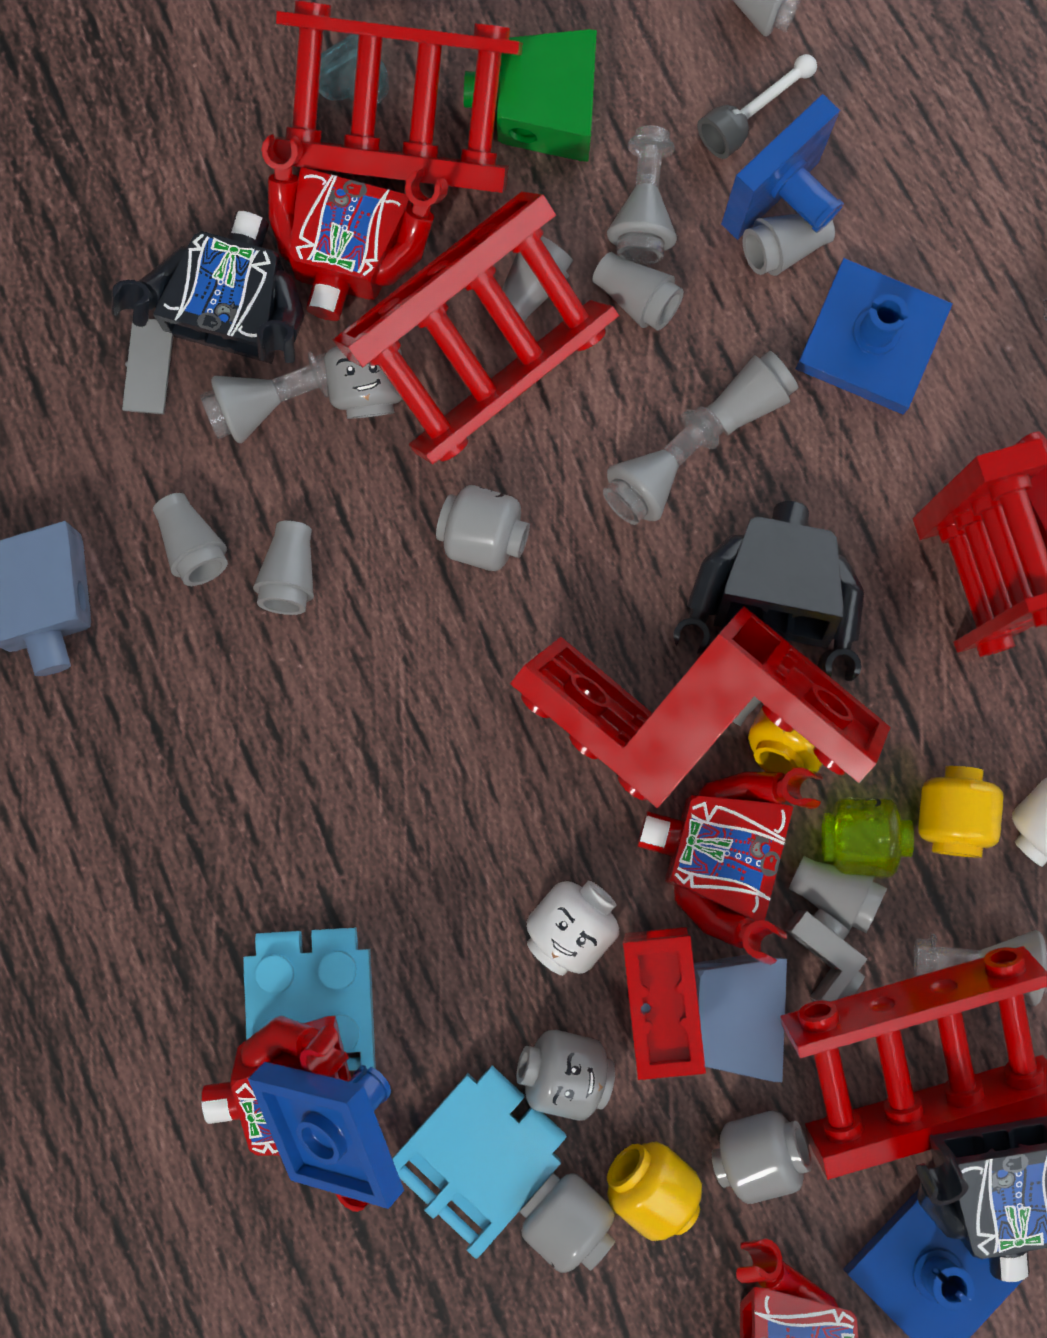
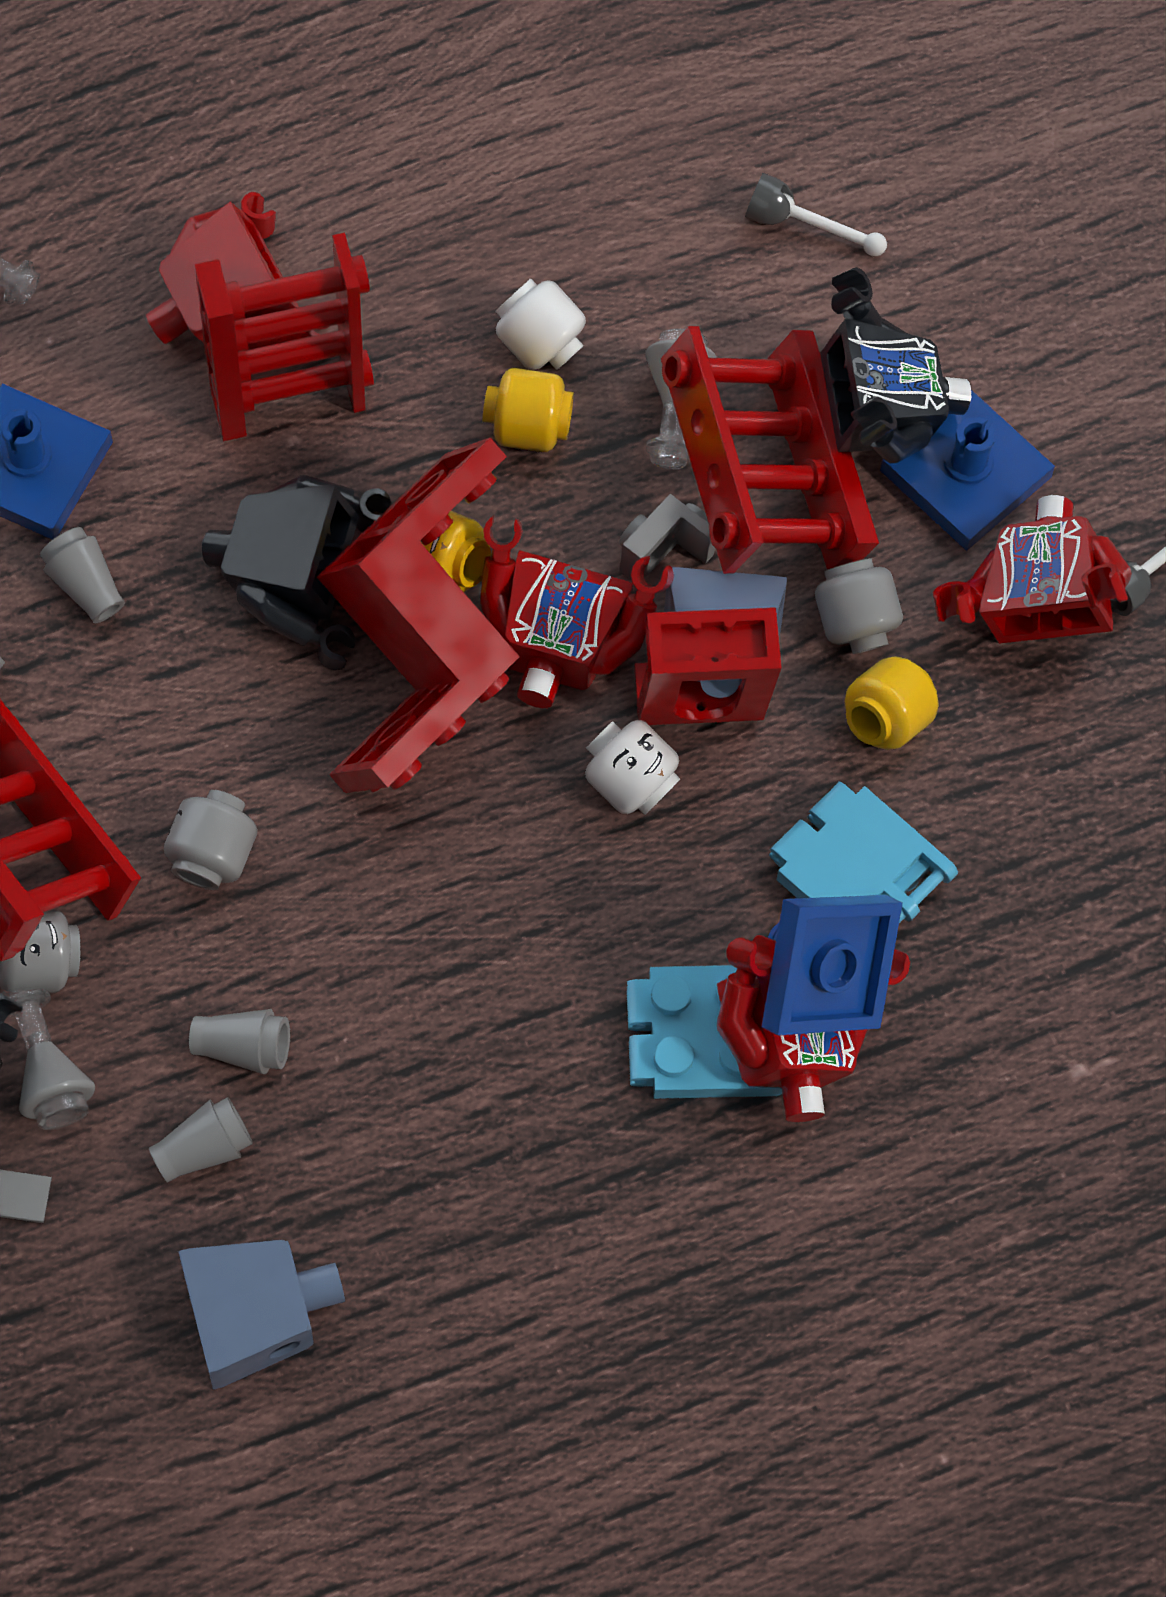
camera: 90 degrees left, 15 degrees down
(566, 1075) = (780, 776): light grey head -> none
(568, 1223) = (923, 781): light grey head -> none
(642, 485) = (176, 681): piece -> none
(845, 897) = (602, 522): light grey cone -> none
(866, 837) = (550, 496): clear neon green head -> none

